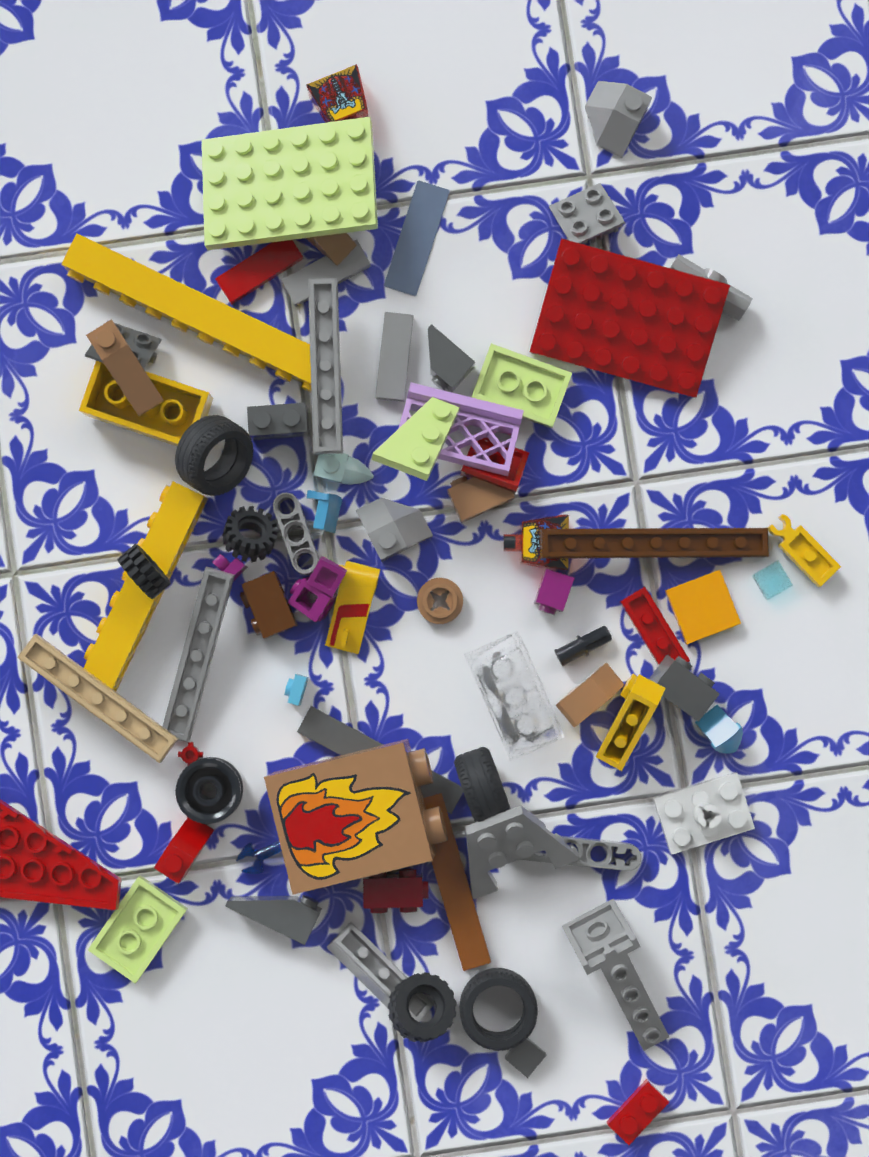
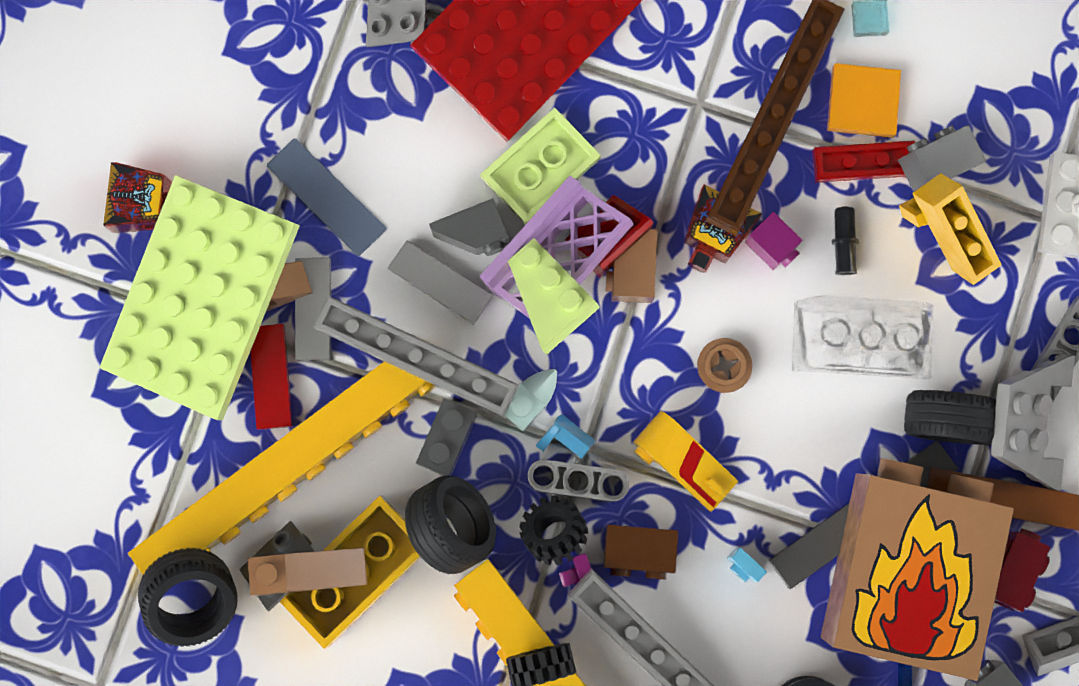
camera: 60 degrees left, 5 degrees down
(48, 308) = (197, 625): none -> black tyre
(301, 600) = (666, 505): magenta brick -> none
(326, 576) = (643, 469): magenta tile -> none
(393, 526) = (620, 375): light grey slope -> none
(590, 695) = (903, 259): medium nougat slope -> none
(720, 730) = (1003, 145): dark azure tile -> none

